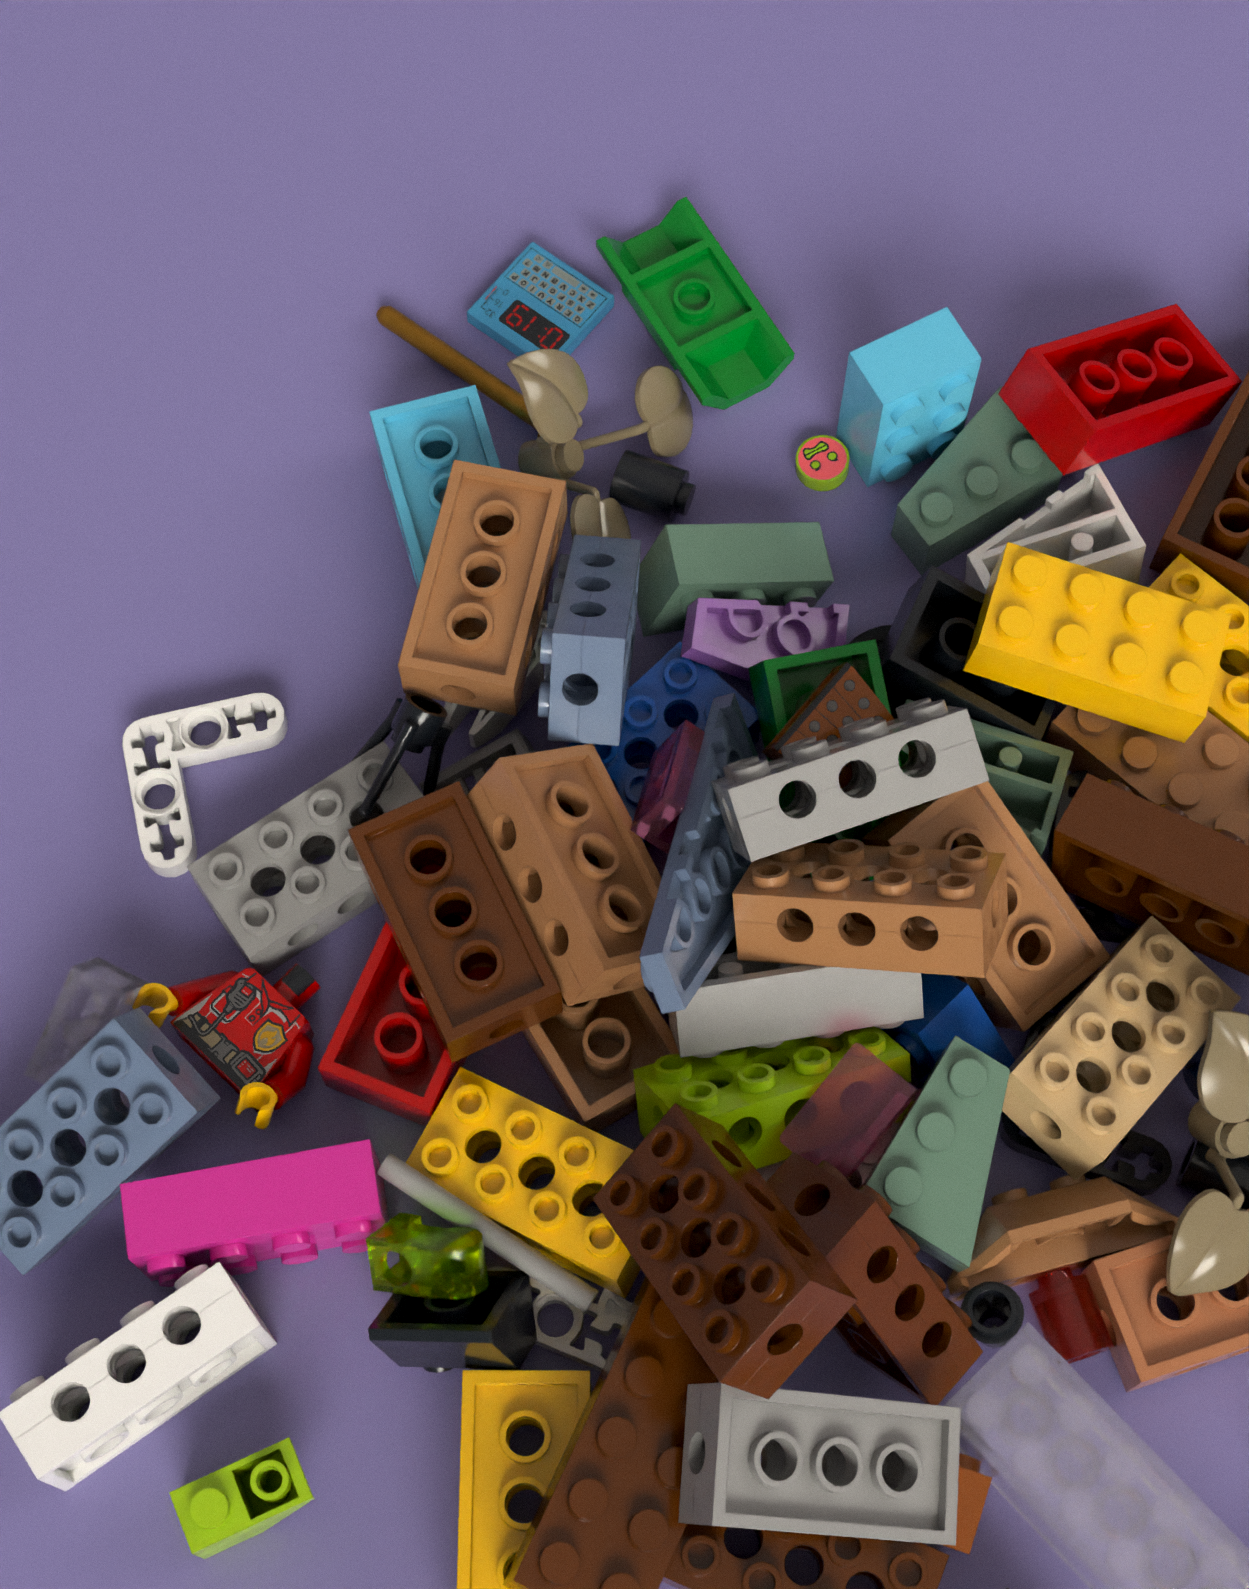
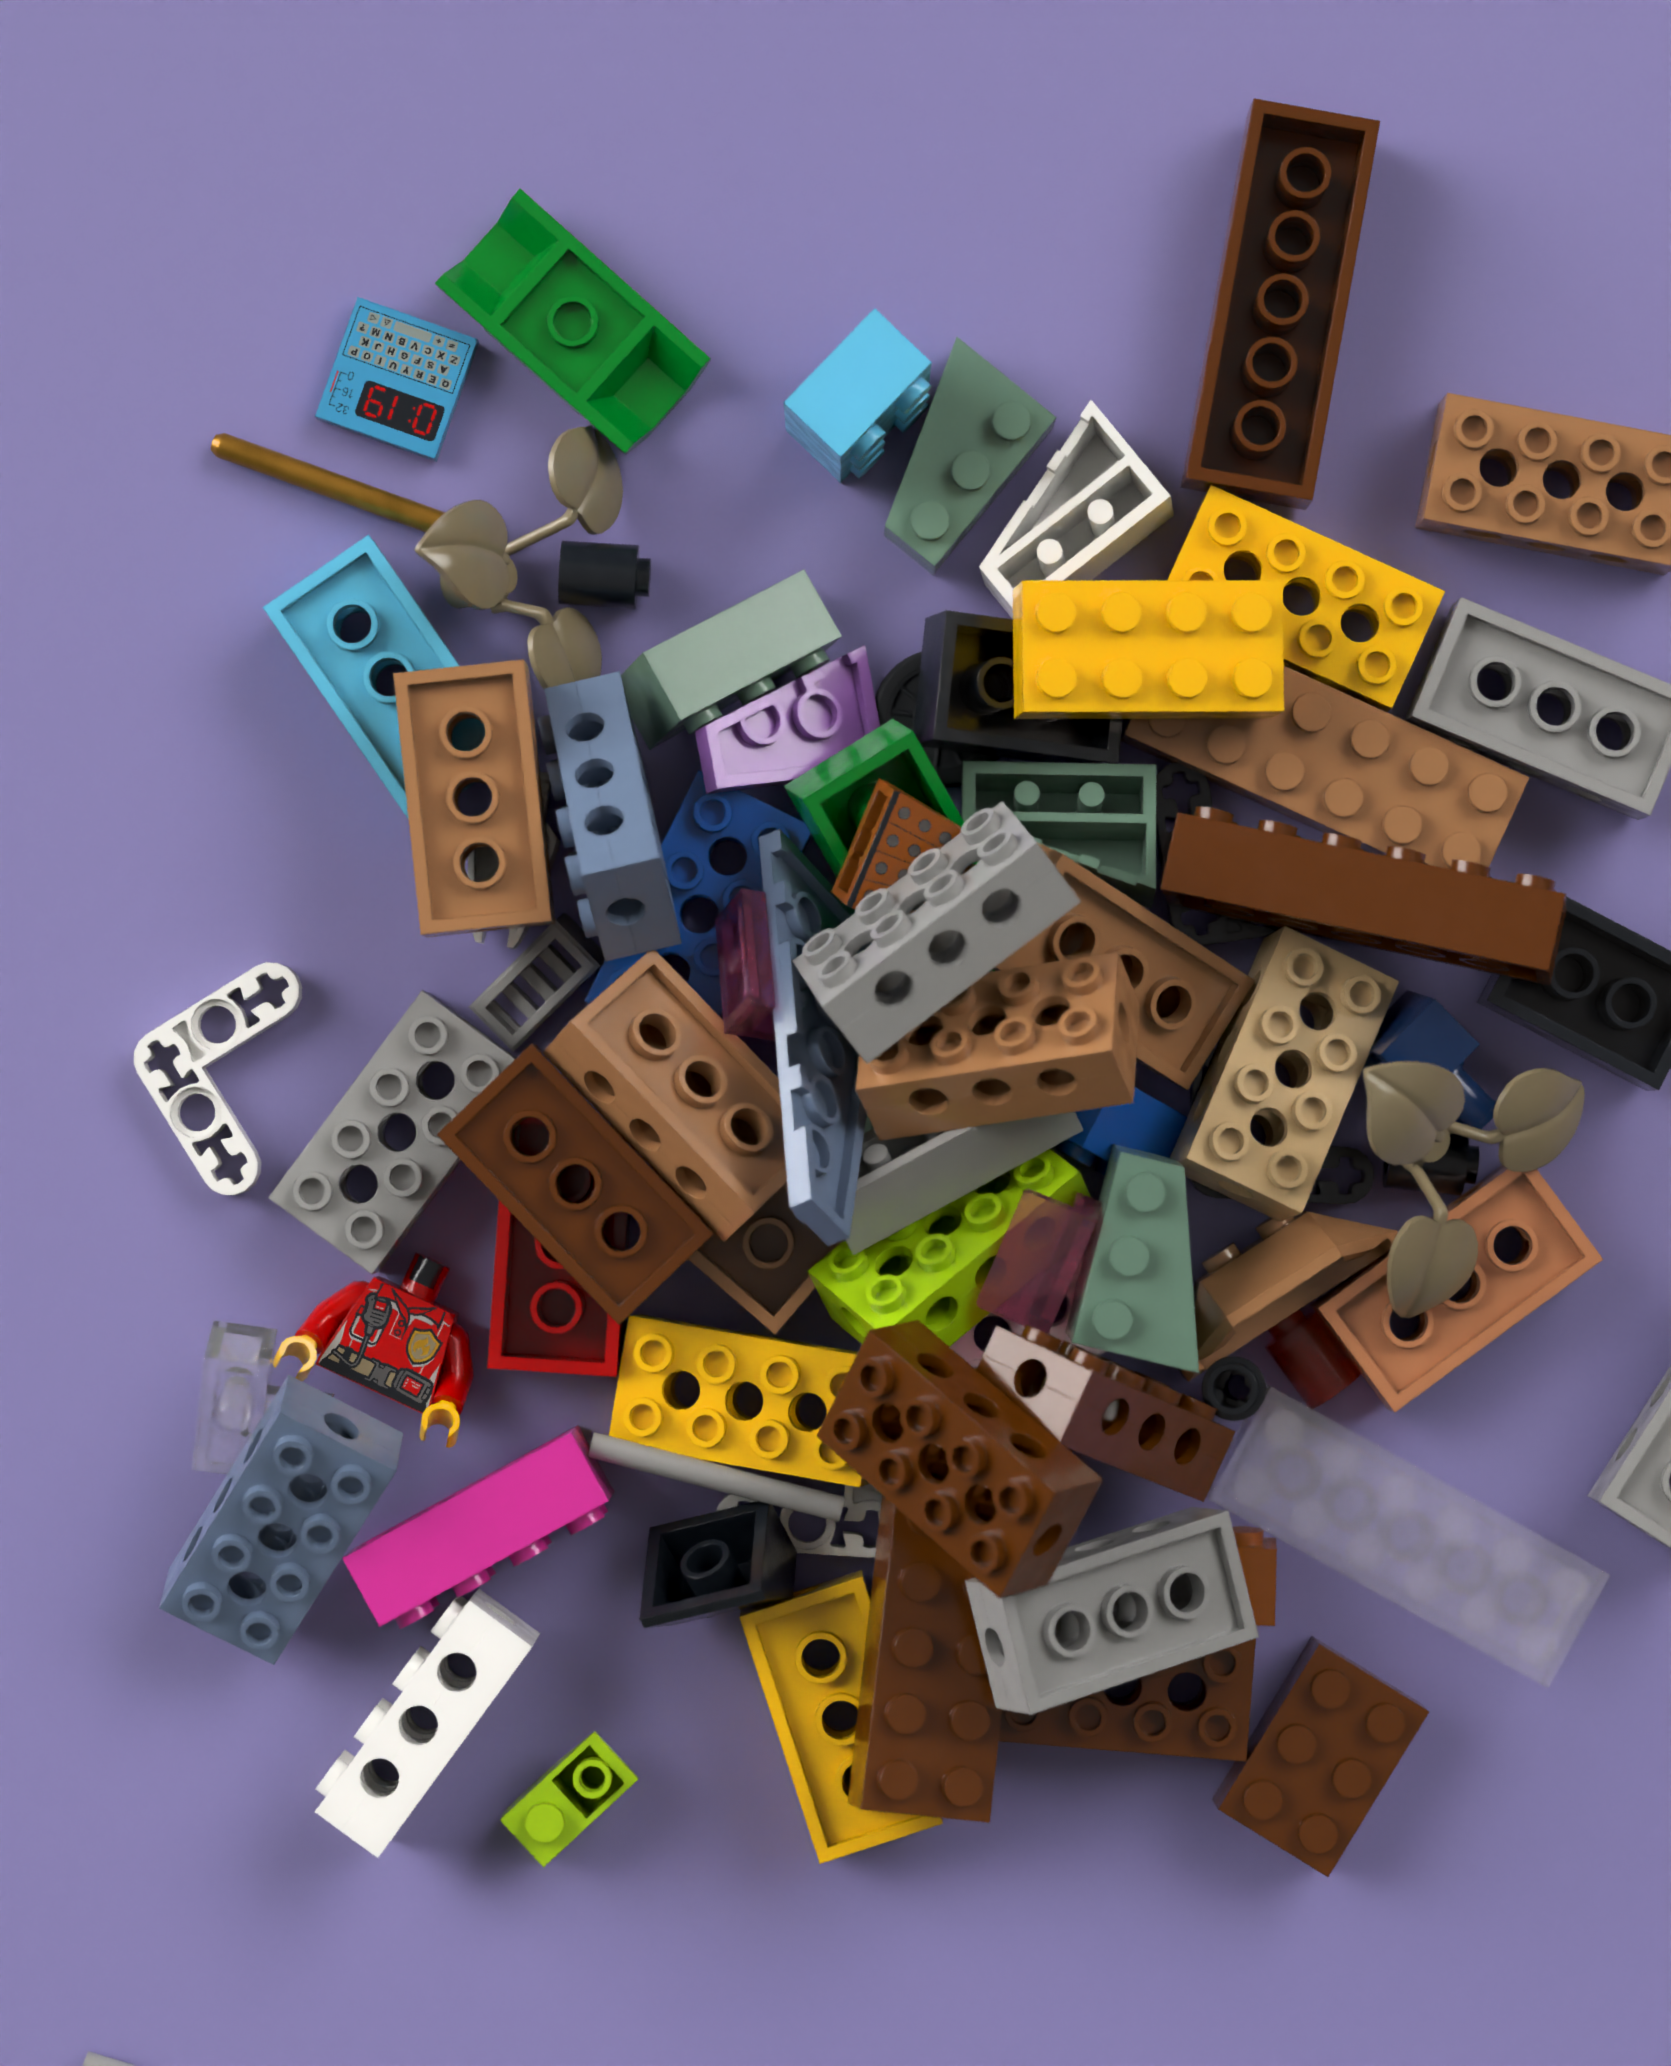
camera: 15 degrees left, 20 degrees up
(416, 725) = (454, 971): black plant -> none
(431, 1259) = (667, 1524): clear neon green leg -> none
(819, 466) = (781, 473): tile -> none
(1118, 388) = (1091, 302): red brick -> none

